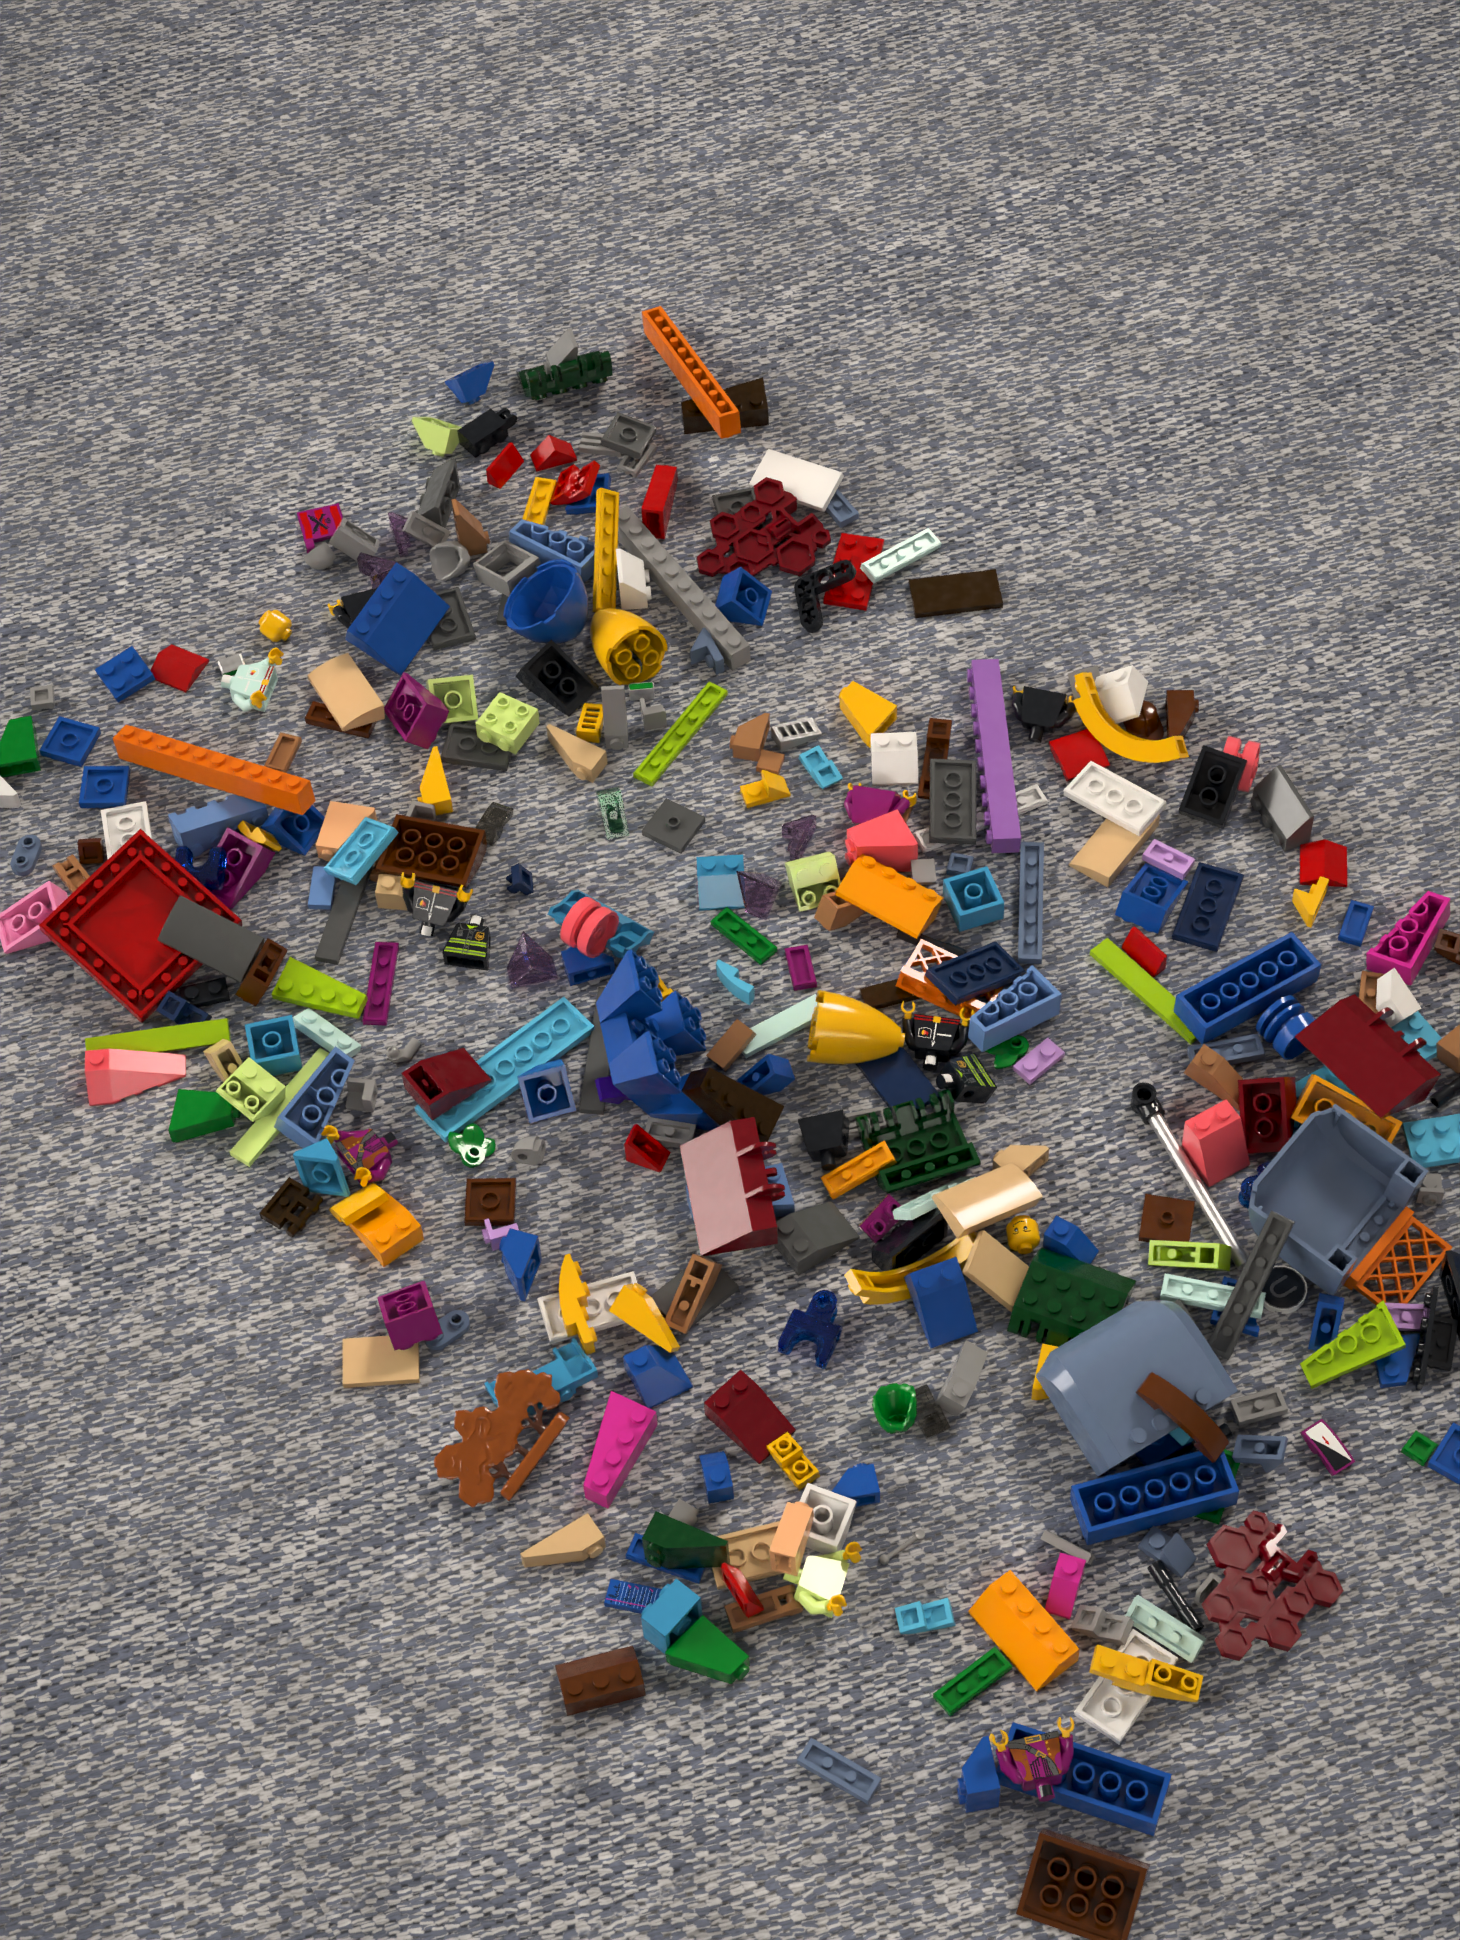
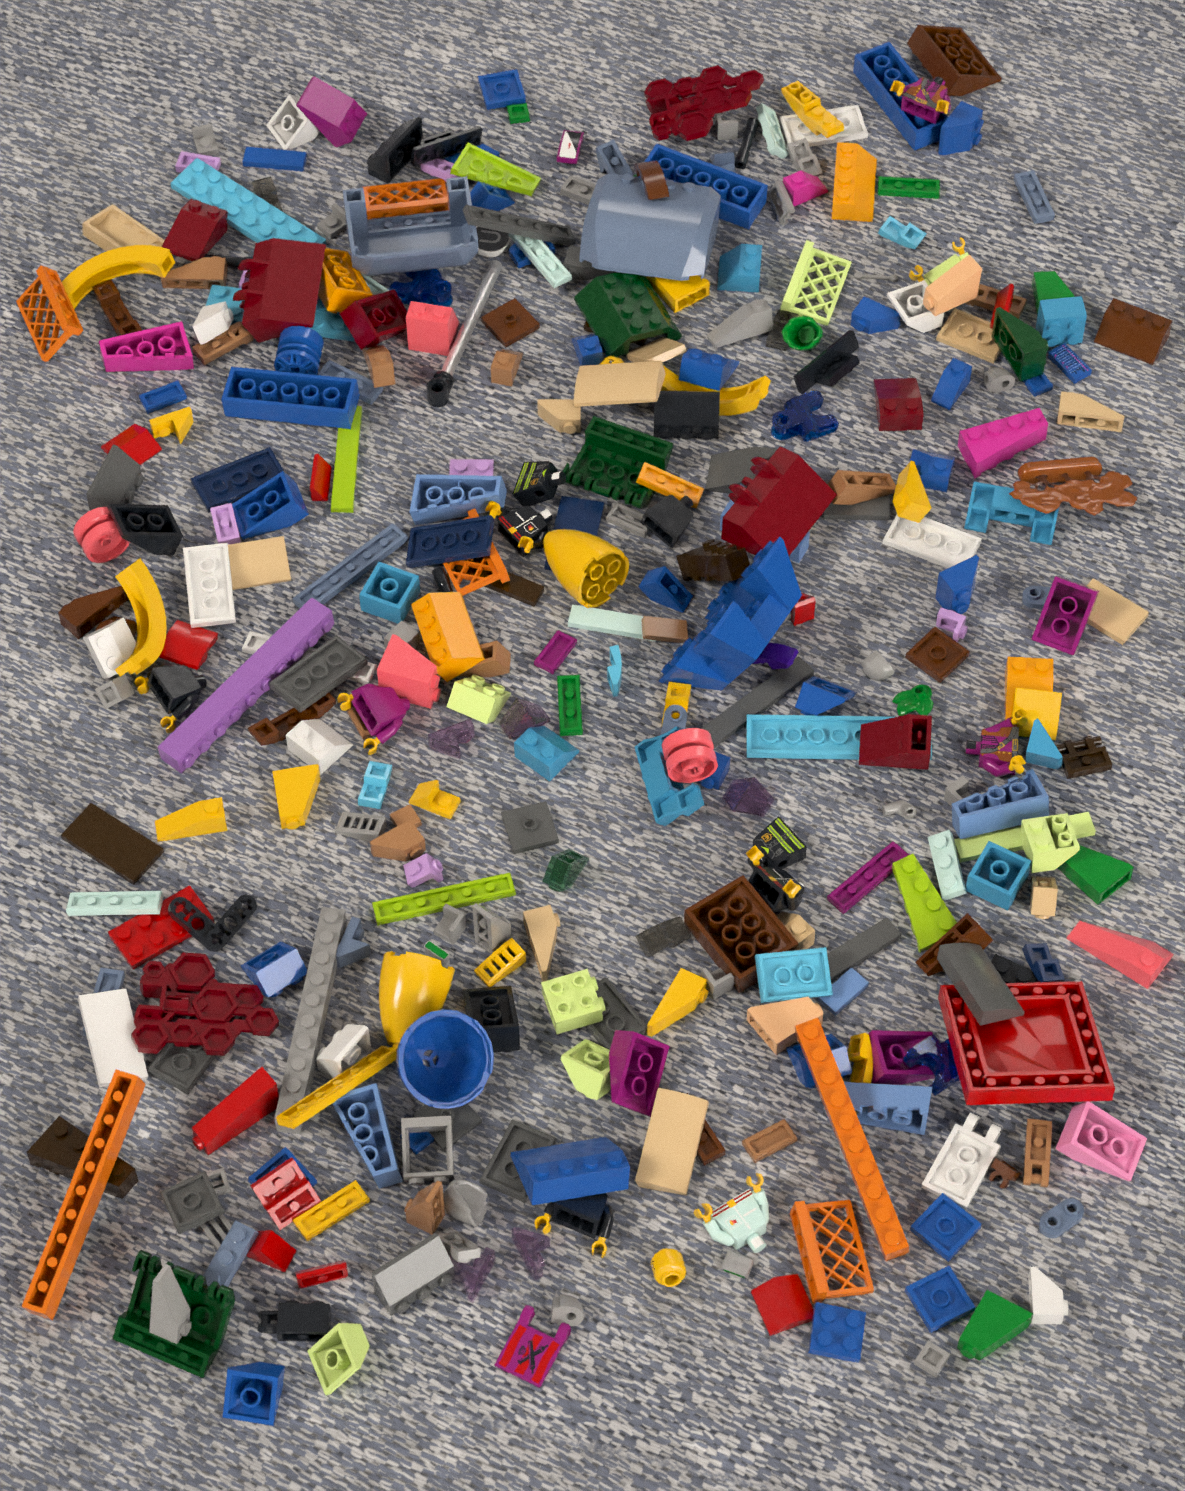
camera: 140 degrees left, 0 degrees up
(165, 1038) = (1081, 958): lime tile -> none
(181, 700) = (810, 1247): none -> orange fence
(353, 540) = (523, 1289): light grey slope -> none
(520, 879) = (687, 870): dark blue tile -> none
(569, 427) = (230, 1254): none -> sand blue plate
(573, 1304) = (946, 538): yellow slope -> none
(713, 735) = (422, 870): none -> lavender bracket
(792, 1461) = (894, 361): yellow slope -> none
(841, 1405) = (830, 364): none -> black bracket
(881, 1219) = (690, 443): magenta hips -> none
(914, 645) = (193, 820): none -> yellow slope
(924, 1203) = (653, 417): light aqua tile -> none
(959, 864) = (364, 636): sand blue tile -> none
(966, 1478) = (800, 275): none -> yellowish green fence
(1025, 1440) = (740, 269): none -> dark azure slope
(1119, 1172) = (505, 366): none -> medium nougat slope
(1190, 1255) = (522, 285): lime slope -> none

